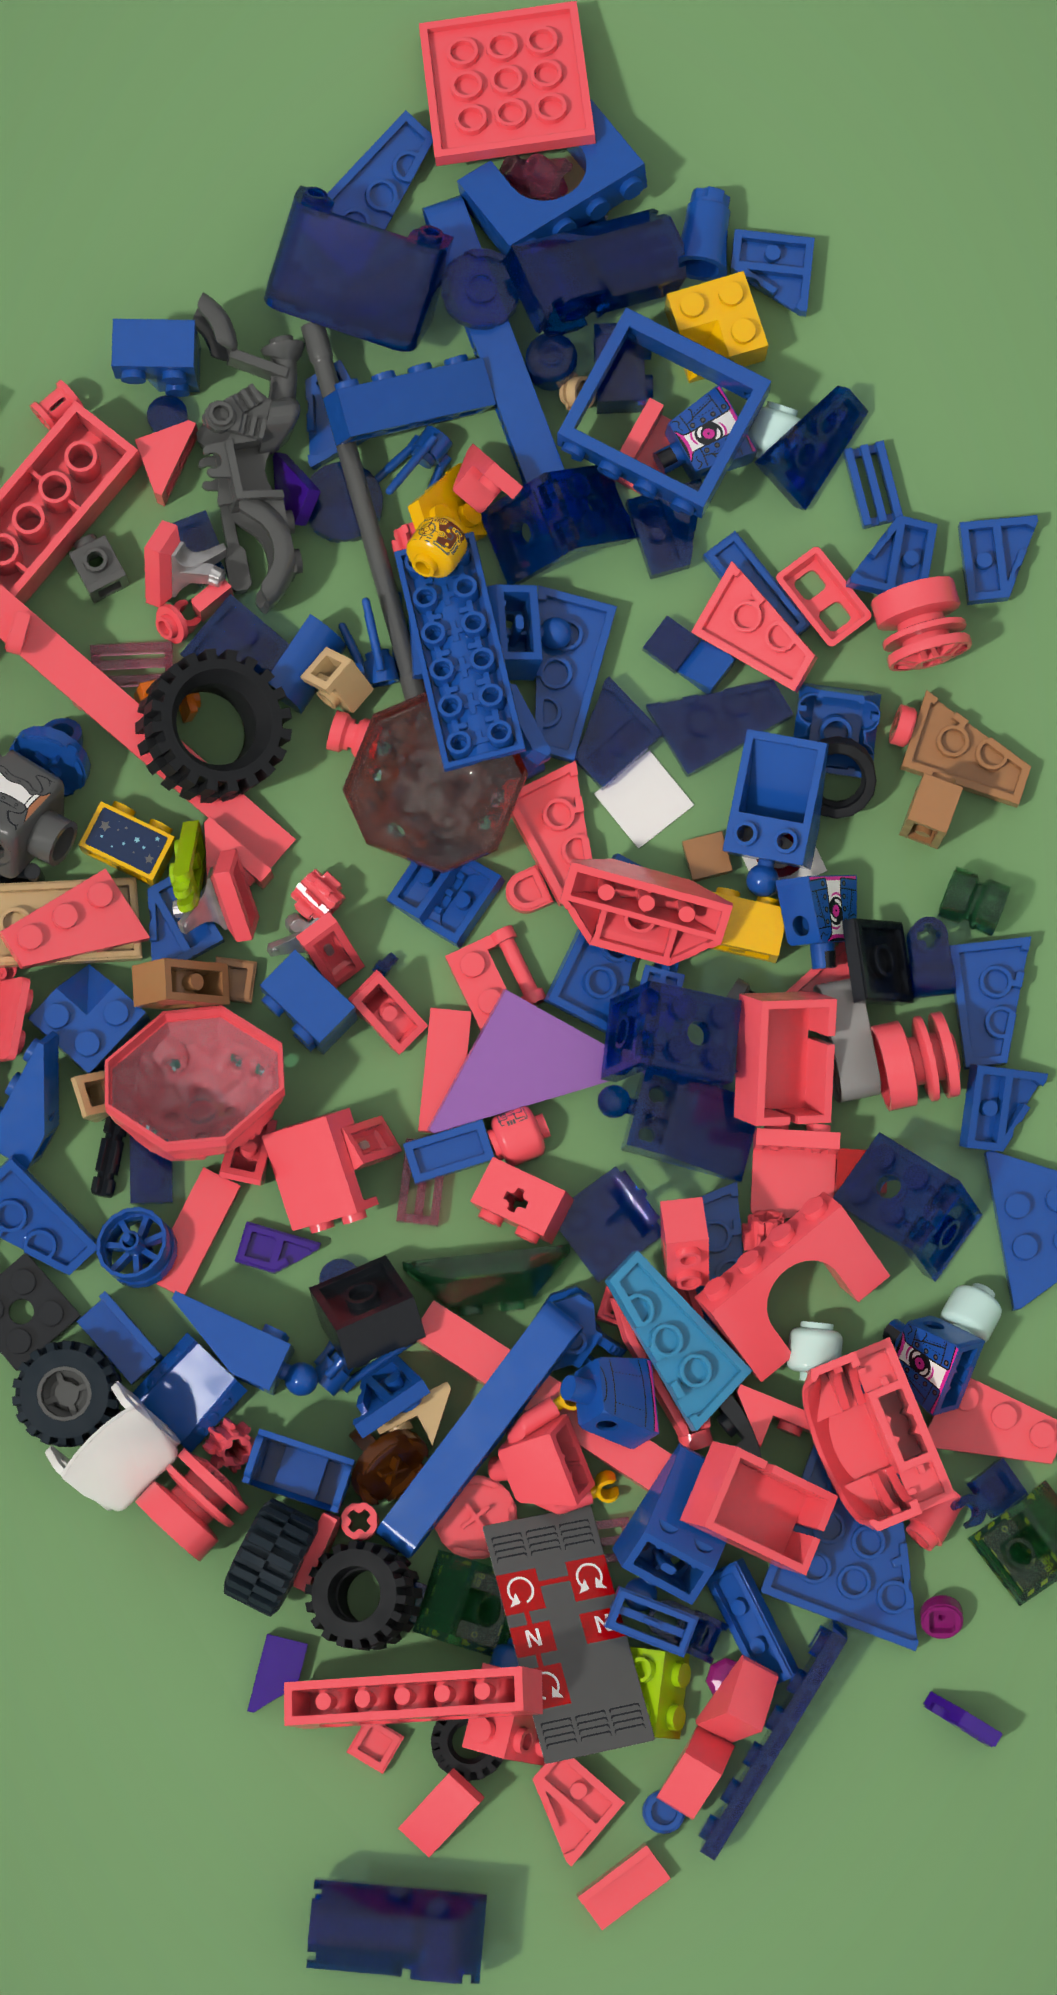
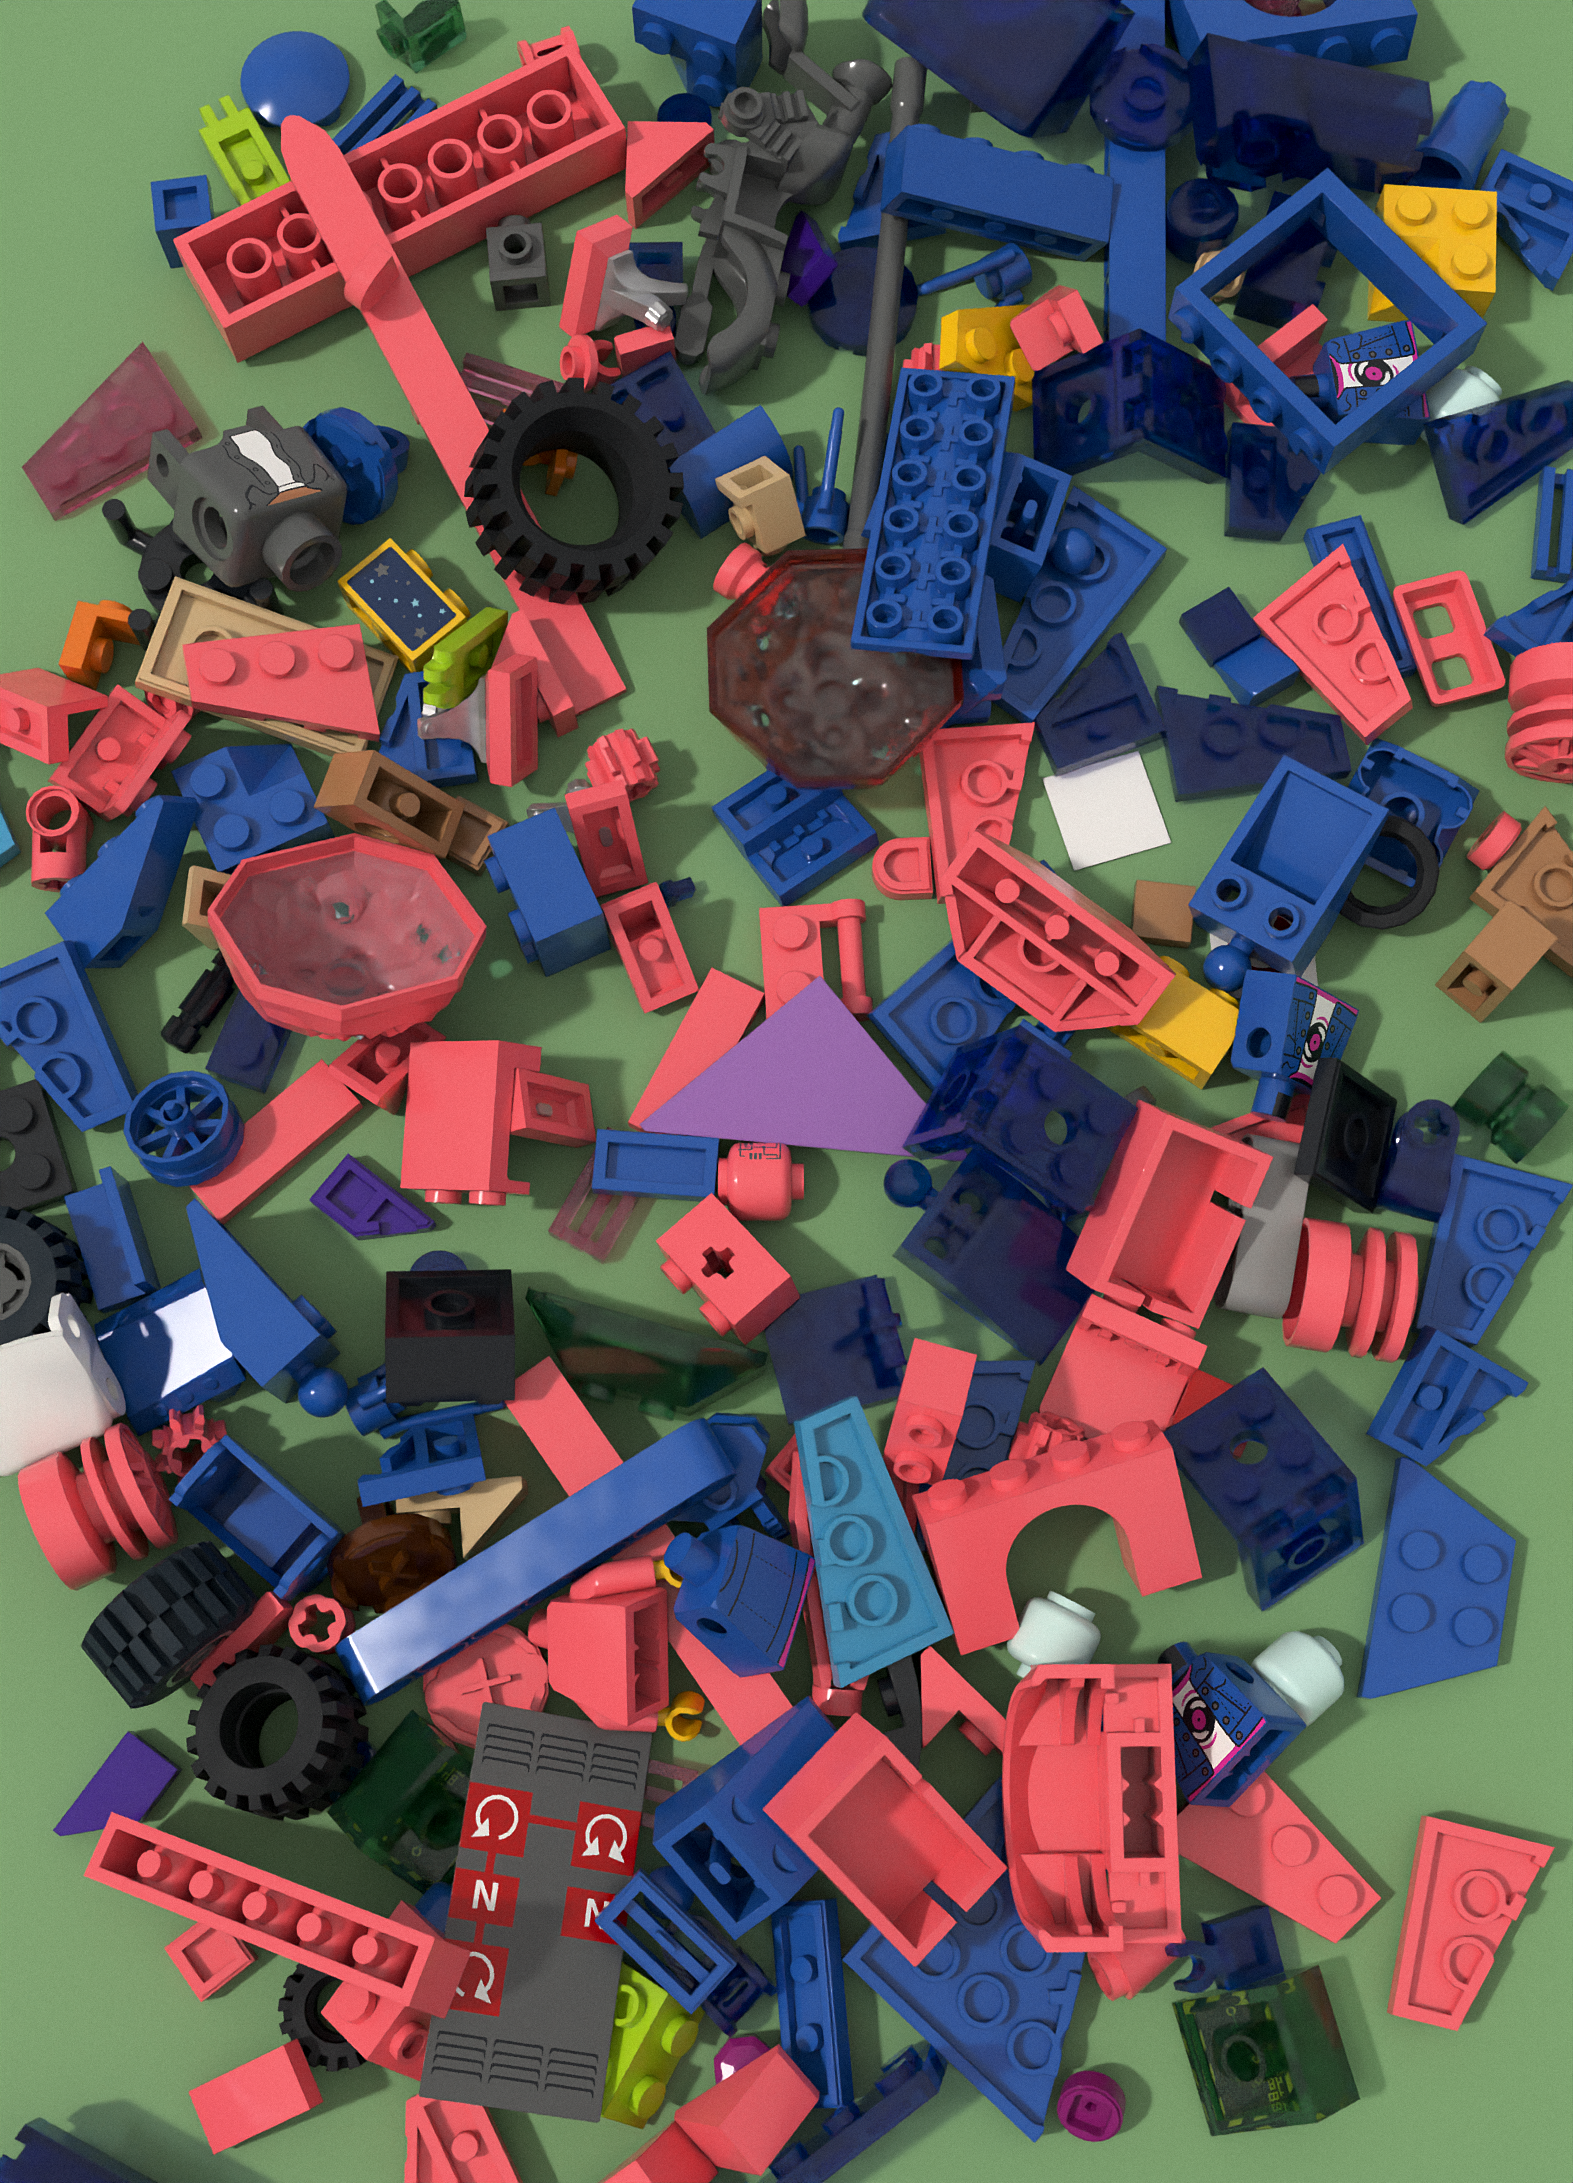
camera: 25 degrees right, 5 degrees down
(436, 547) = (958, 366): yellow head -> none

